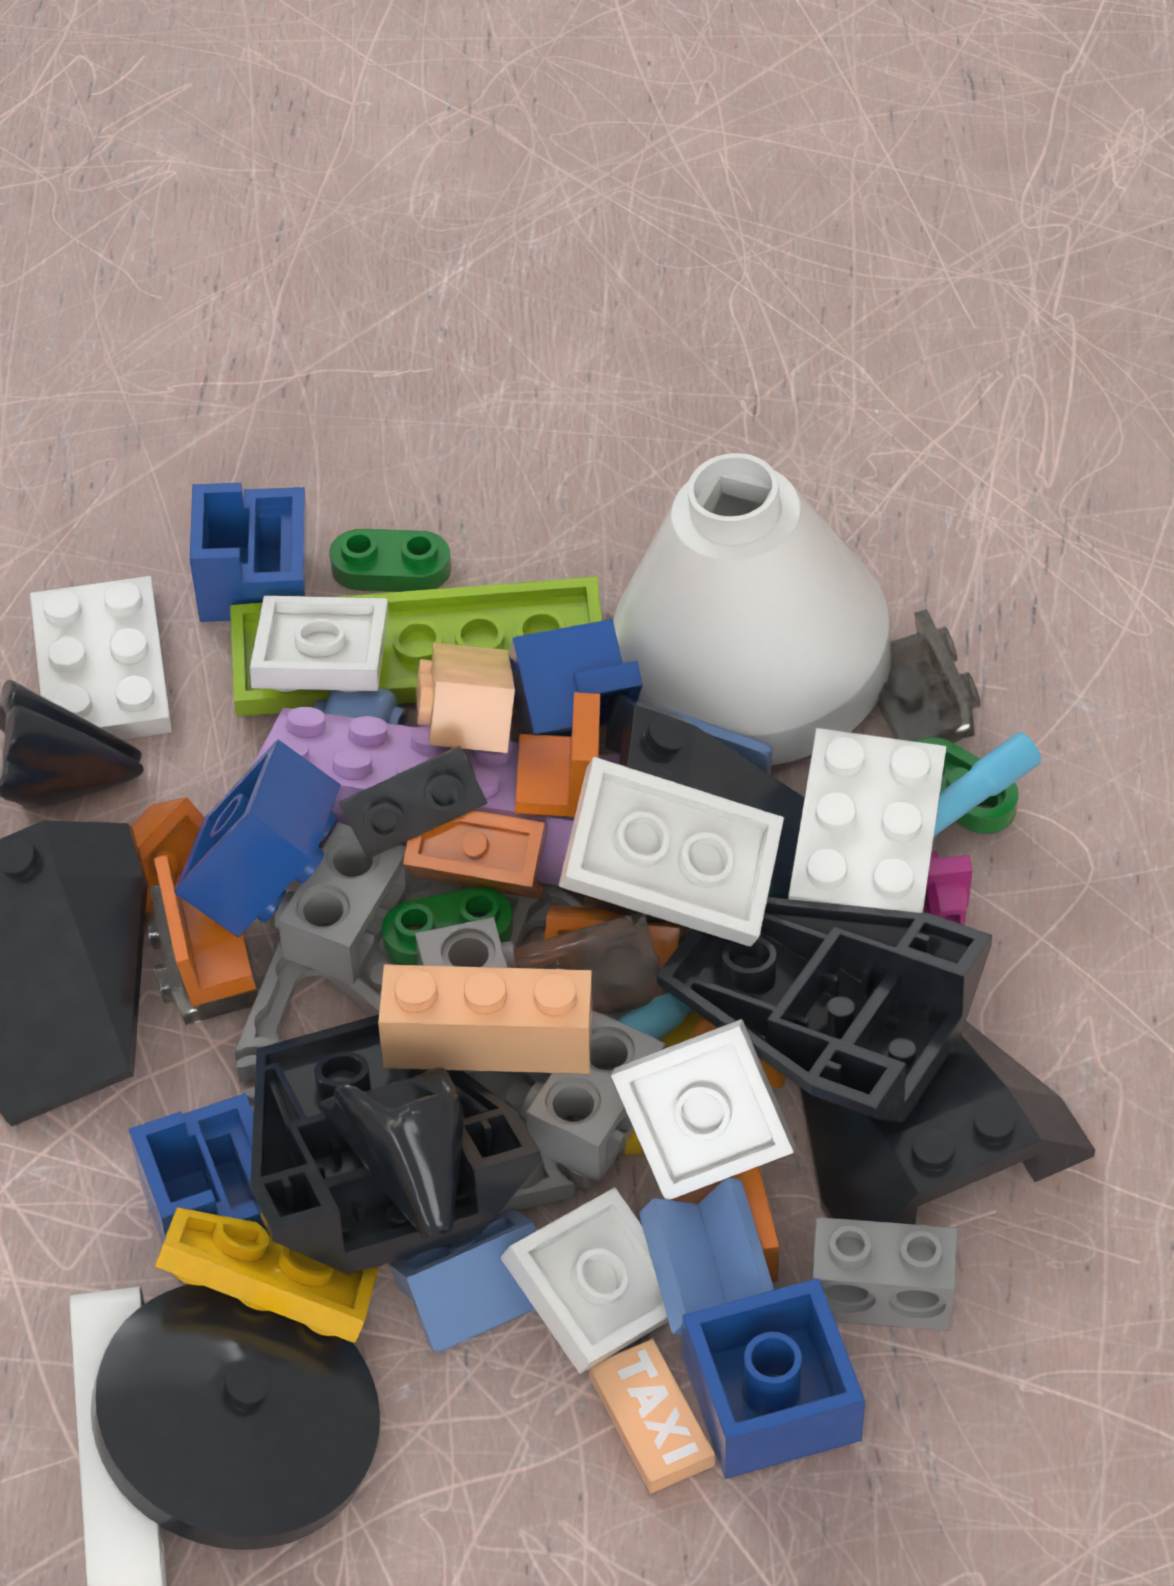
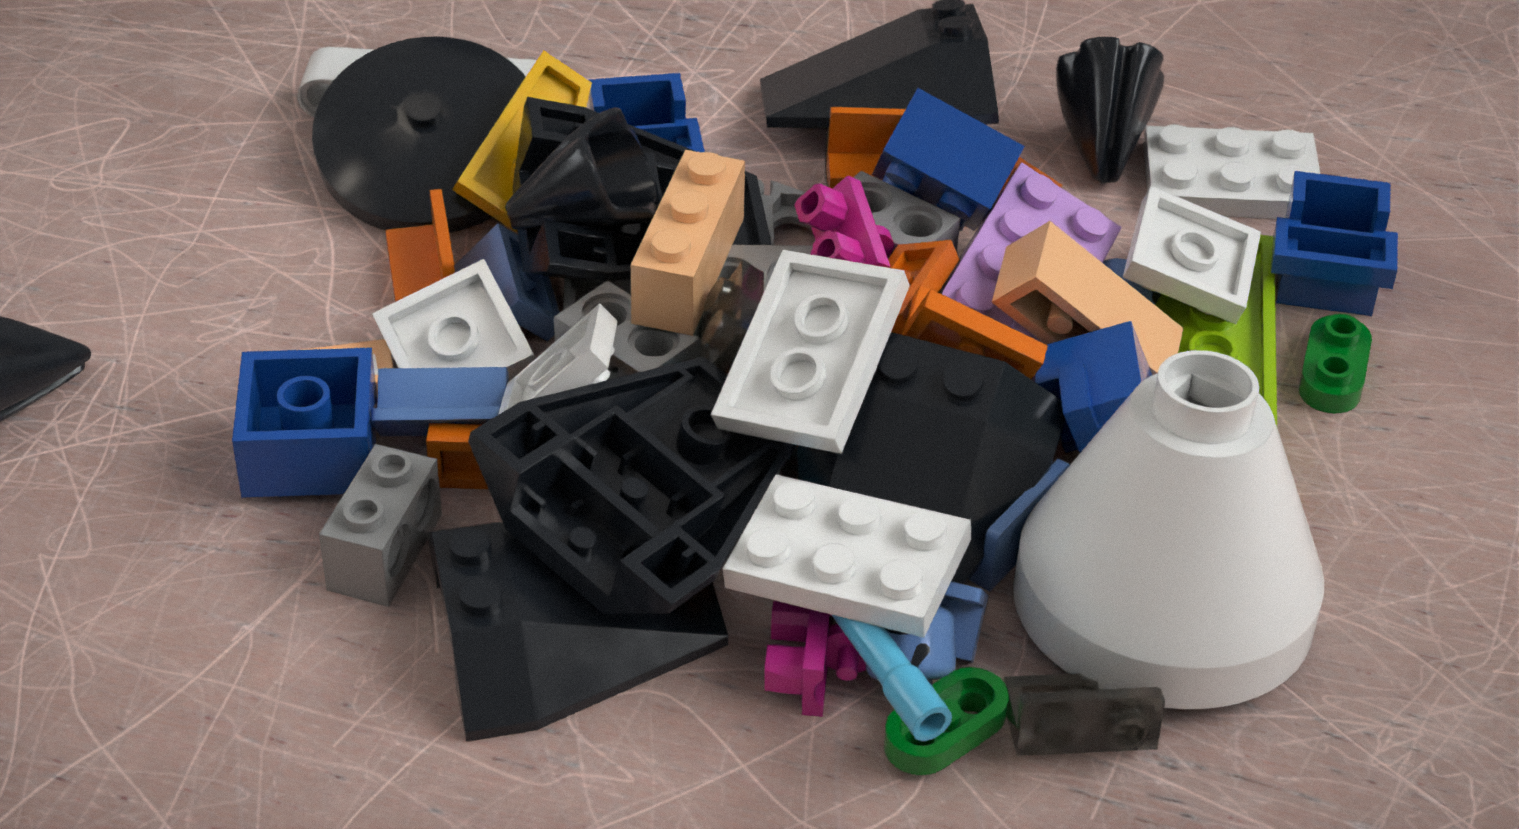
camera: 100 degrees right, 10 degrees down
(413, 802) = (944, 231): black hinge -> none
(424, 896) = (844, 224): none -> dark pink hips
(450, 1365) = (420, 253): none -> orange panel

